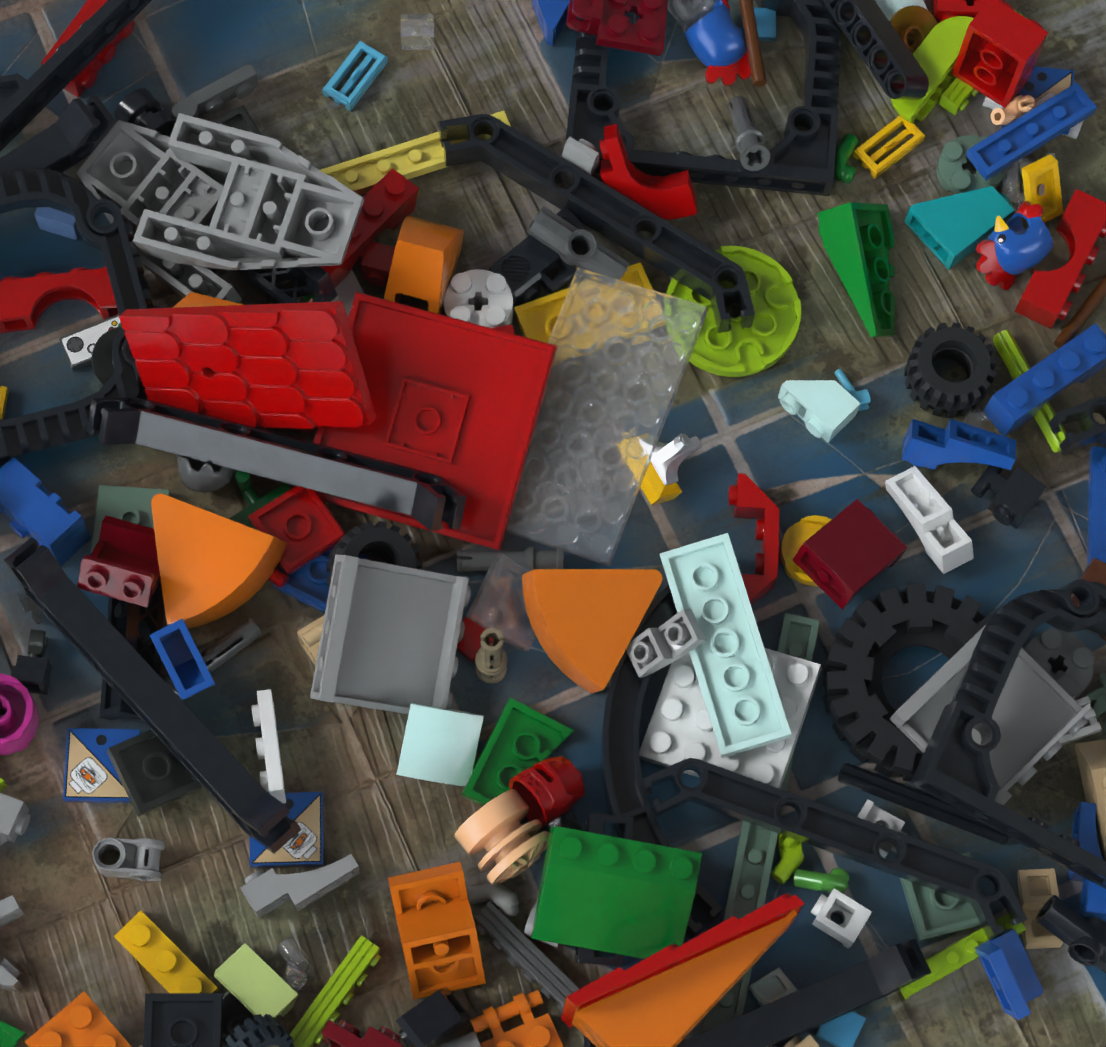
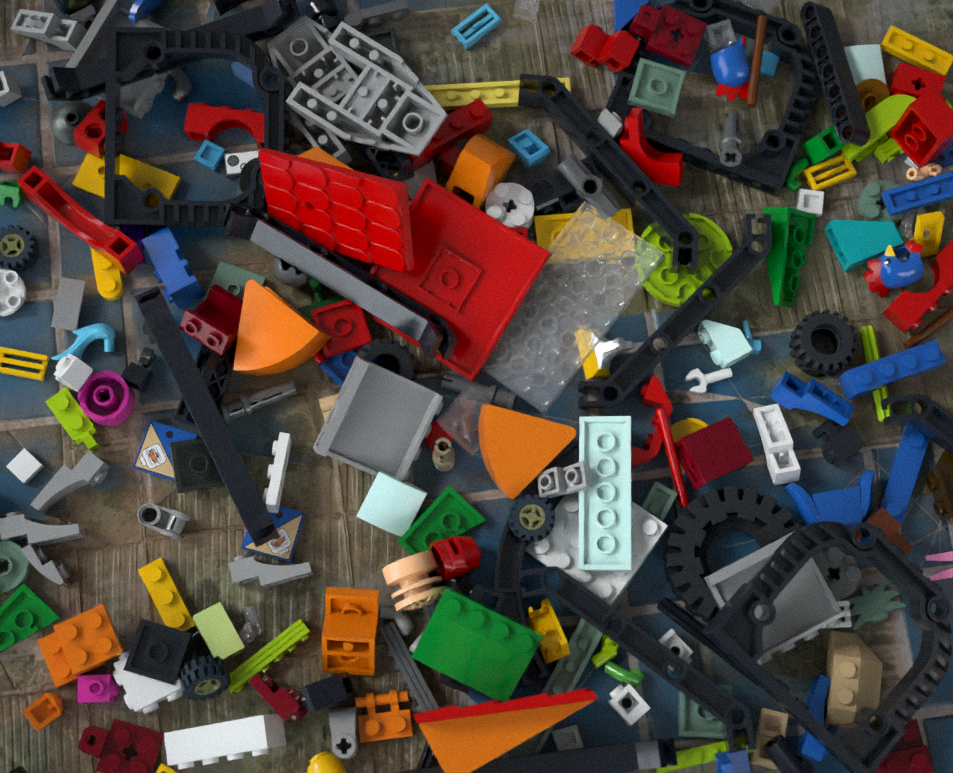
camera: 20 degrees right, 5 degrees up
(39, 346) = (210, 155): none -> dark azure tile
(182, 659) = (235, 397): blue slope -> none
(480, 219) = (529, 148): none -> dark azure slope
(527, 60) = (597, 47): none -> red brick
(627, 92) = (656, 87): none -> sand green plate
(636, 693) = (534, 509): none -> black wheel
(718, 861) = (553, 643): none -> yellow hinge
(756, 388) = (684, 318): none -> black piece
(798, 573) = (672, 456): none -> red bar
(809, 461) = (705, 379): none -> white bar
(870, 111) = (822, 145): none -> green brick
(876, 189) = (810, 201): none -> white tile
(1040, 570) = (839, 505): none -> blue torso

